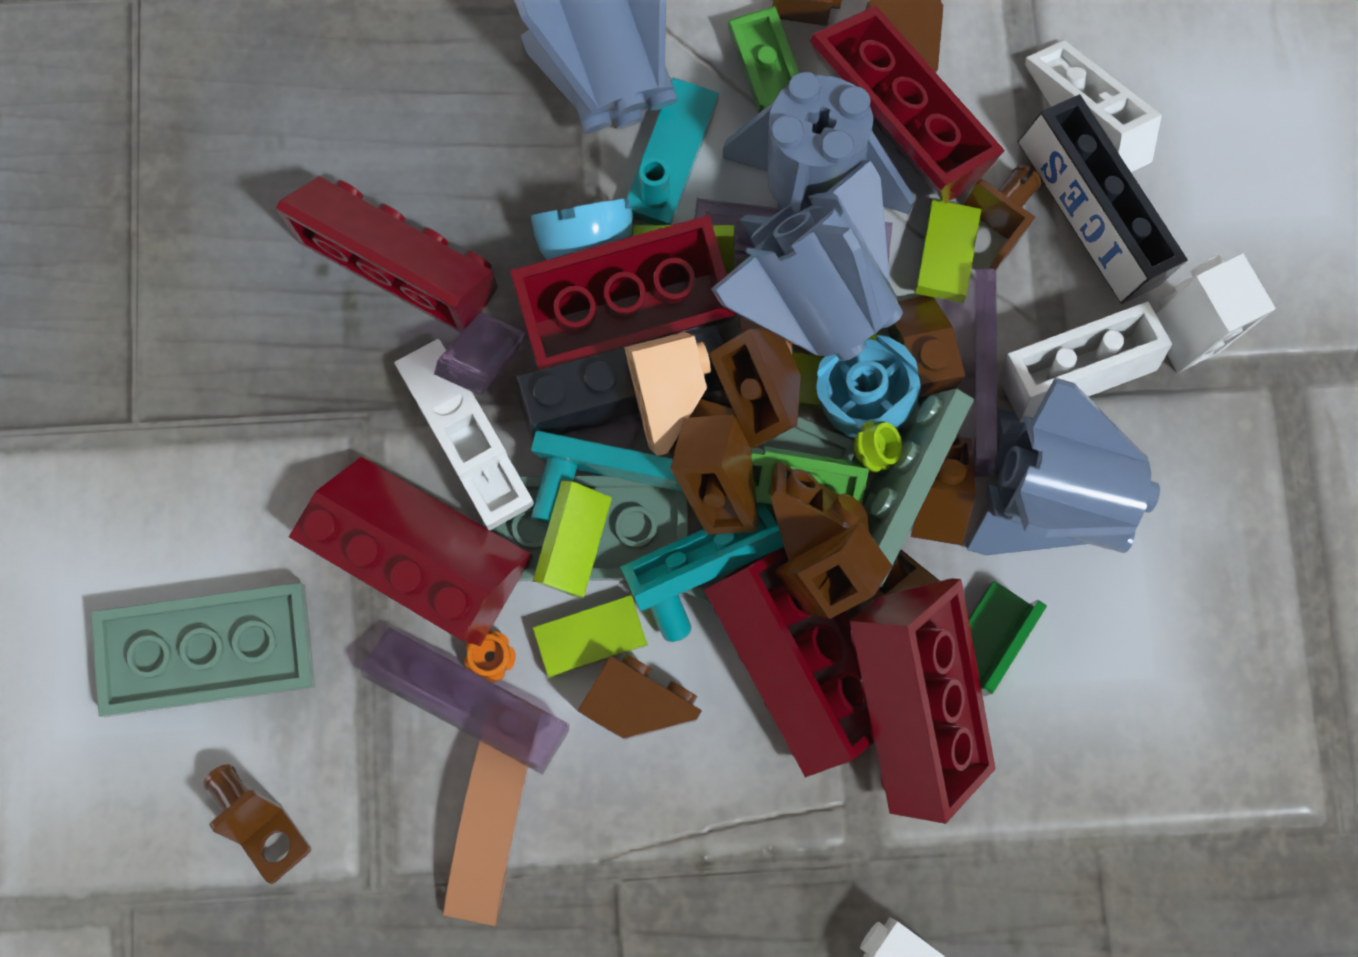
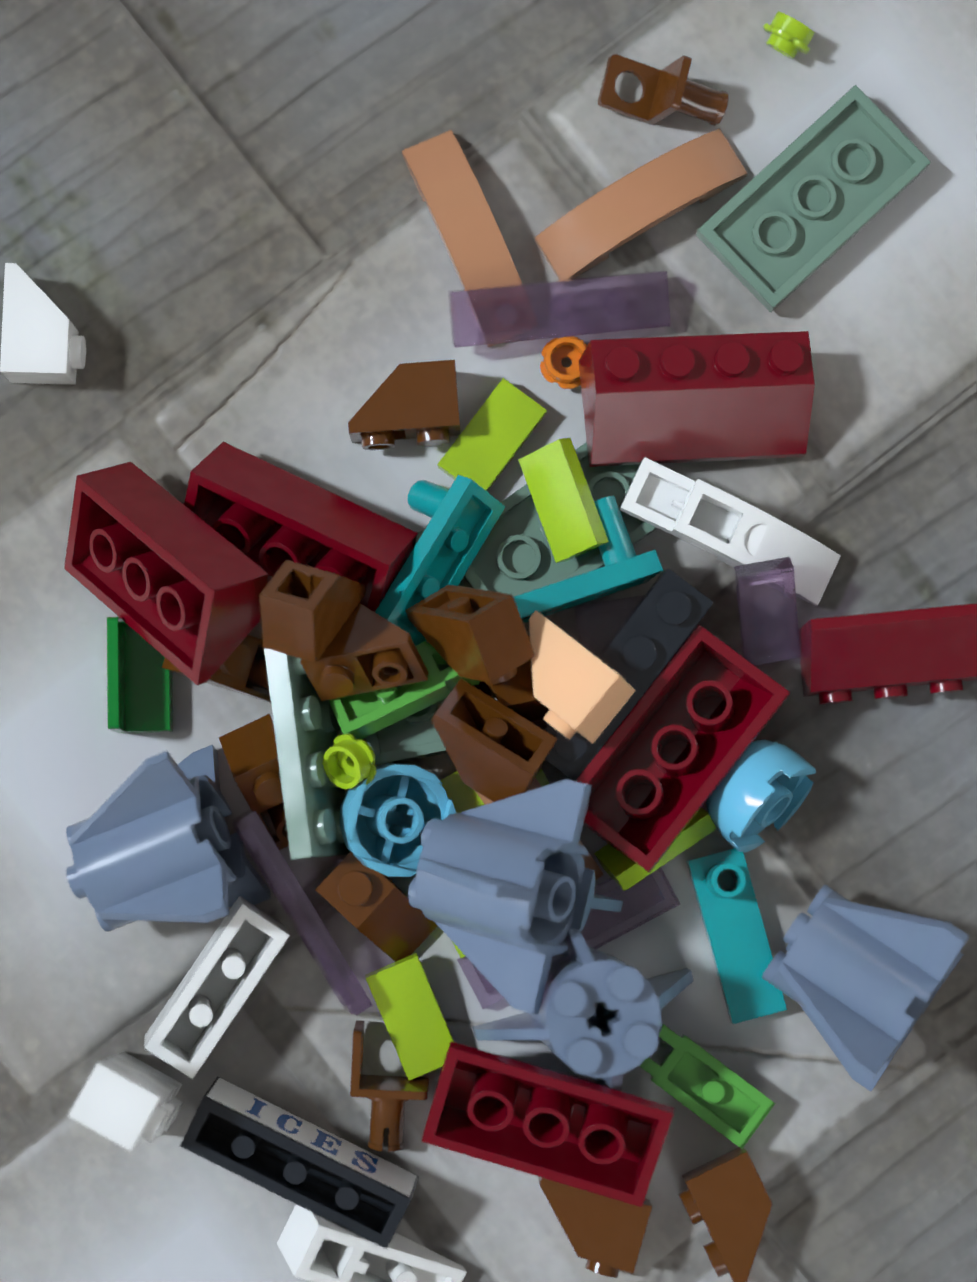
camera: 150 degrees right, 5 degrees up
(119, 798) = (788, 35): none -> lime plate
(339, 742) = (639, 203): none -> nougat slope

